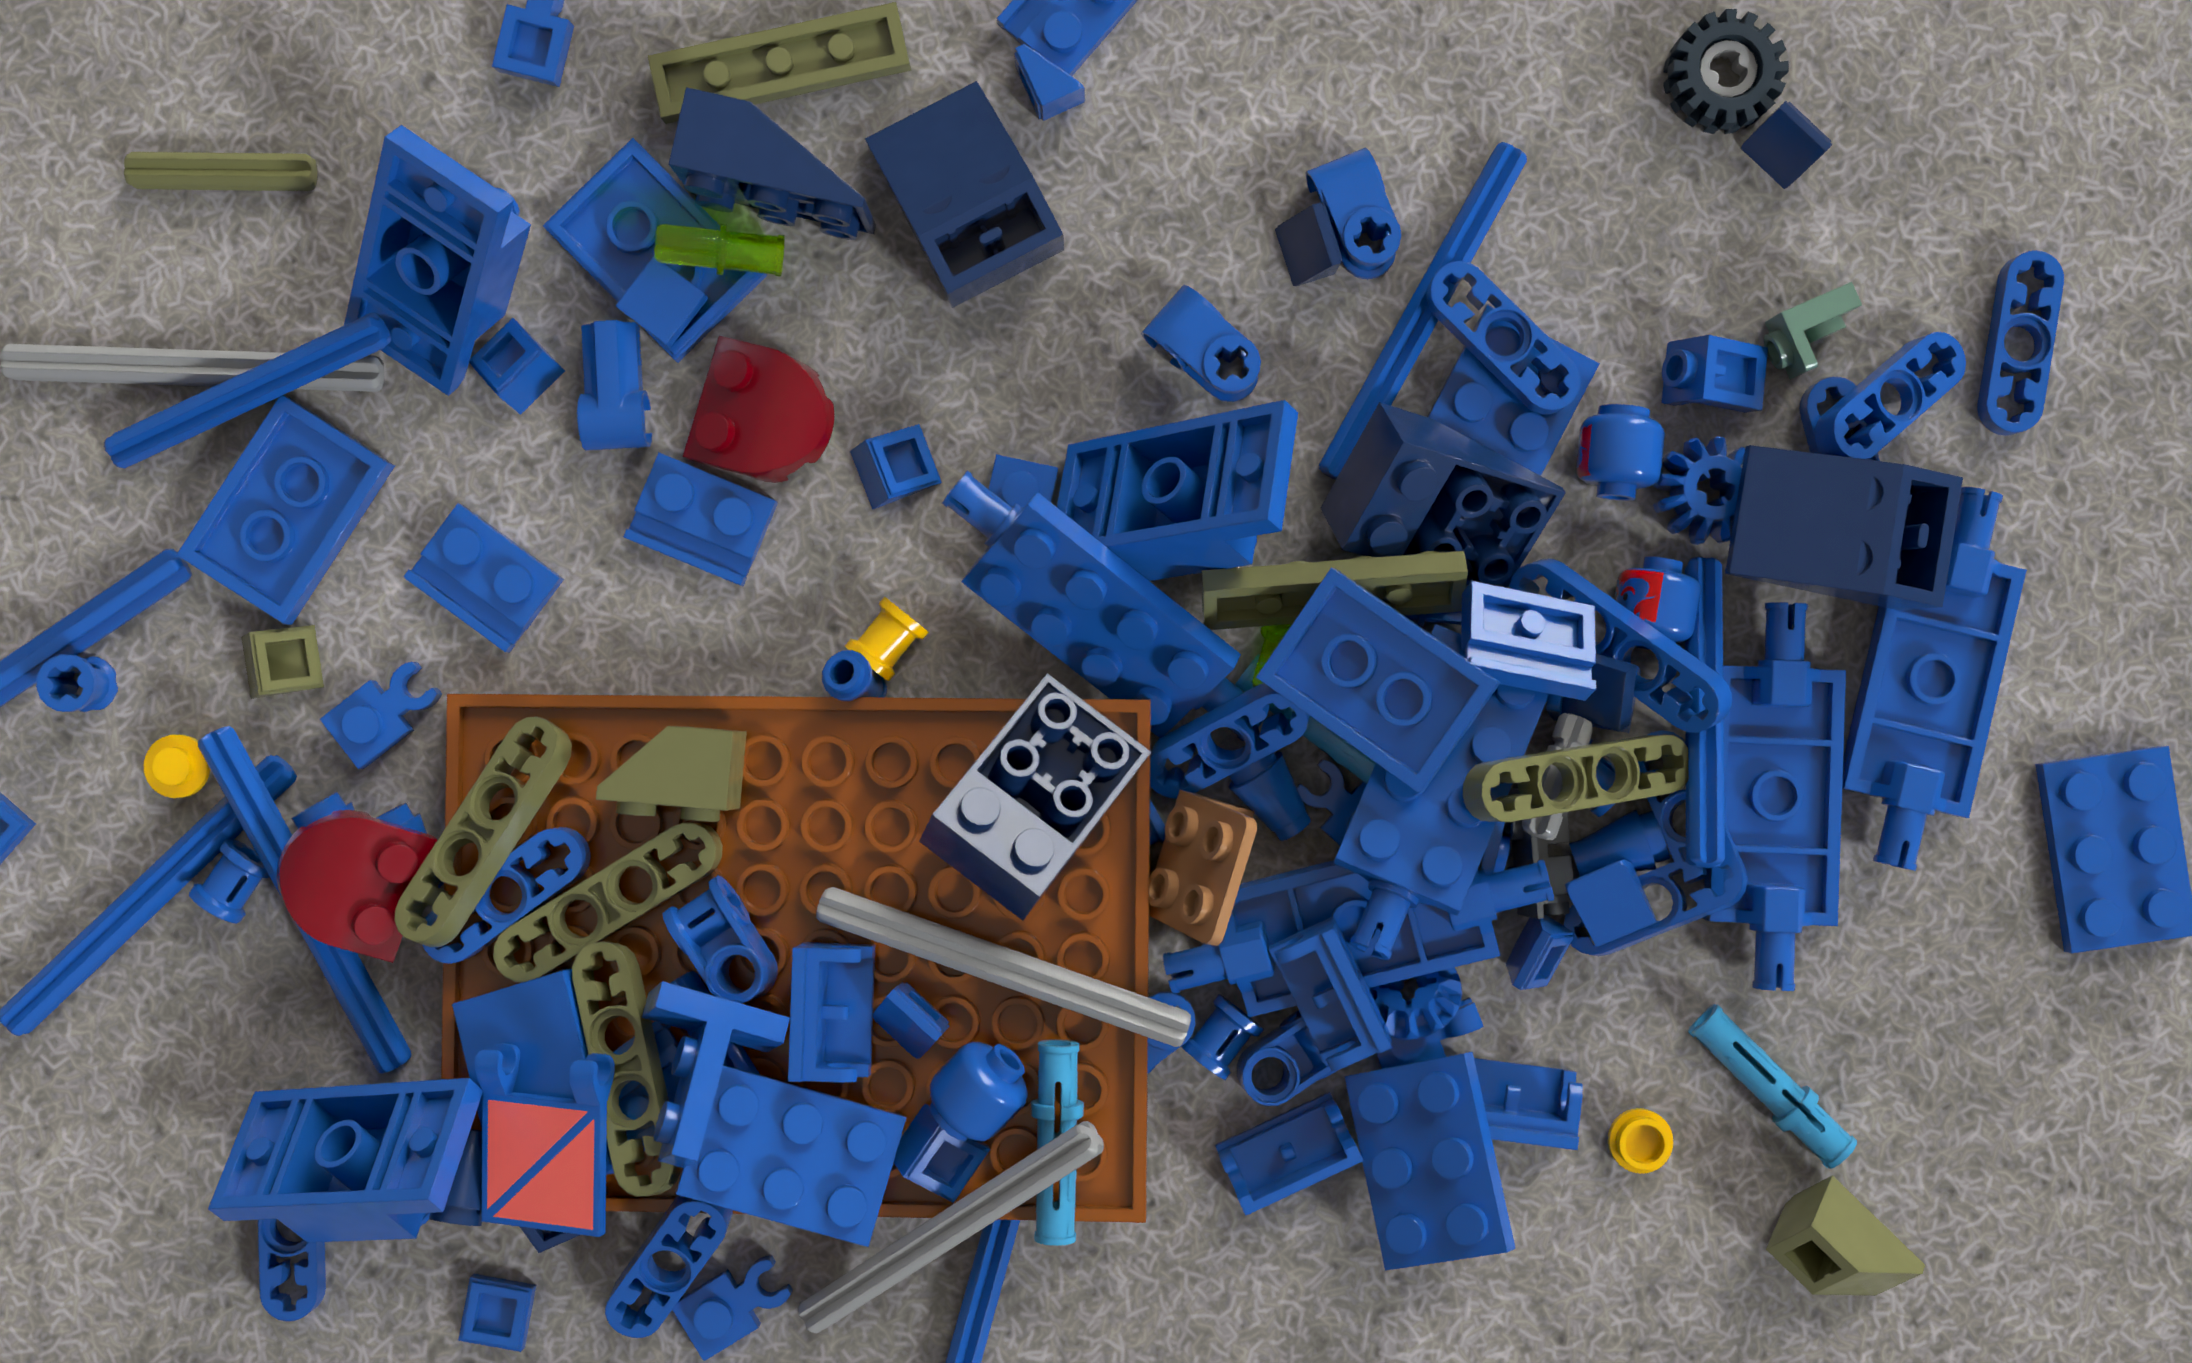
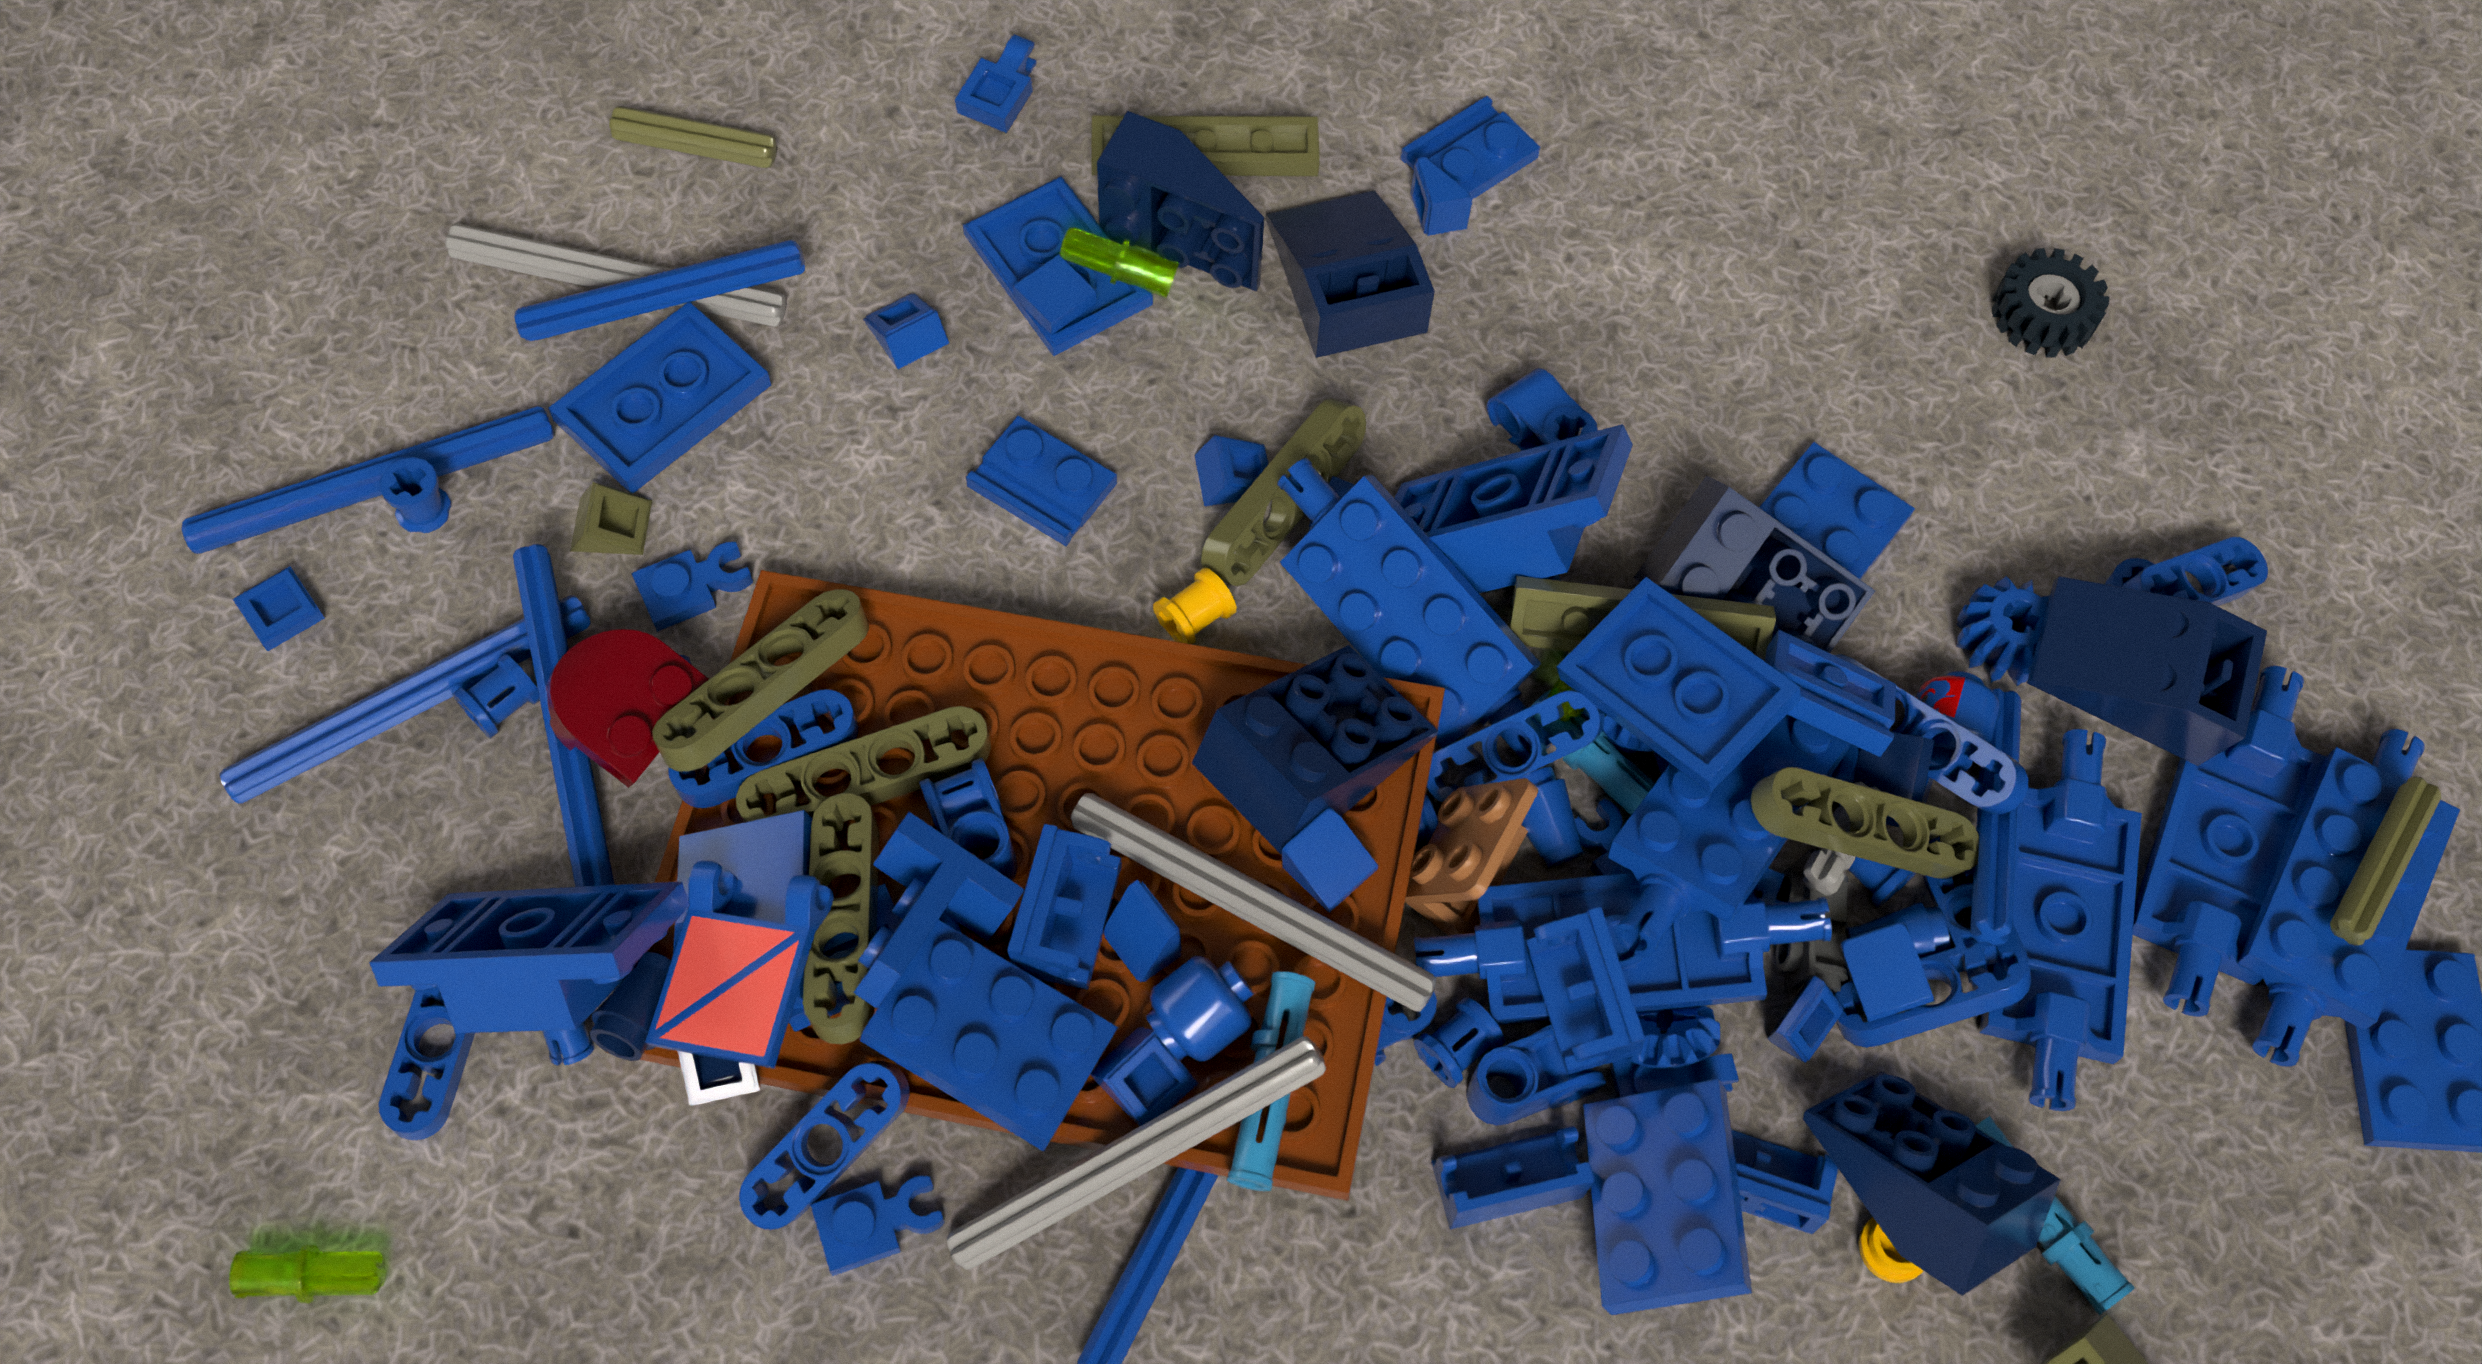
camera: 10 degrees right, 25 degrees down
(176, 766) = (480, 589): yellow plate -> none
(435, 258) = (869, 204): blue brick -> none
(483, 578) = (824, 489): blue plate -> none
(497, 1312) = (621, 1177): blue tile -> none
(614, 398) = (991, 361): blue piece -> none
(681, 769) = (969, 658): olive slope -> none
(759, 413) = (1119, 402): dark red slope -> none
(843, 685) = (1153, 617): blue pin -> none
(973, 434) = (1240, 539): none -> olive beam
(1070, 914) = (1328, 859): none -> blue slope
(1309, 245) = (1655, 364): dark blue slope -> none
(1357, 205) = (1701, 348): blue piece -> none
(1417, 320) = (1766, 422): blue axle -> none
(1530, 335) = (1824, 432): blue beam -> none
(1620, 451) = (1930, 576): blue head -> none
(1665, 1086) = (1934, 1180): none -> dark blue slope
(1715, 373) = (2027, 533): blue bracket -> none
(1786, 144) = (2104, 366): dark blue slope -> none
(1817, 318) = (2117, 508): sand green bracket -> none
(2043, 330) = (2337, 553): blue beam -> none
(2048, 713) = (2292, 941): none -> blue plate
(2082, 699) = (2385, 861): none -> olive axle

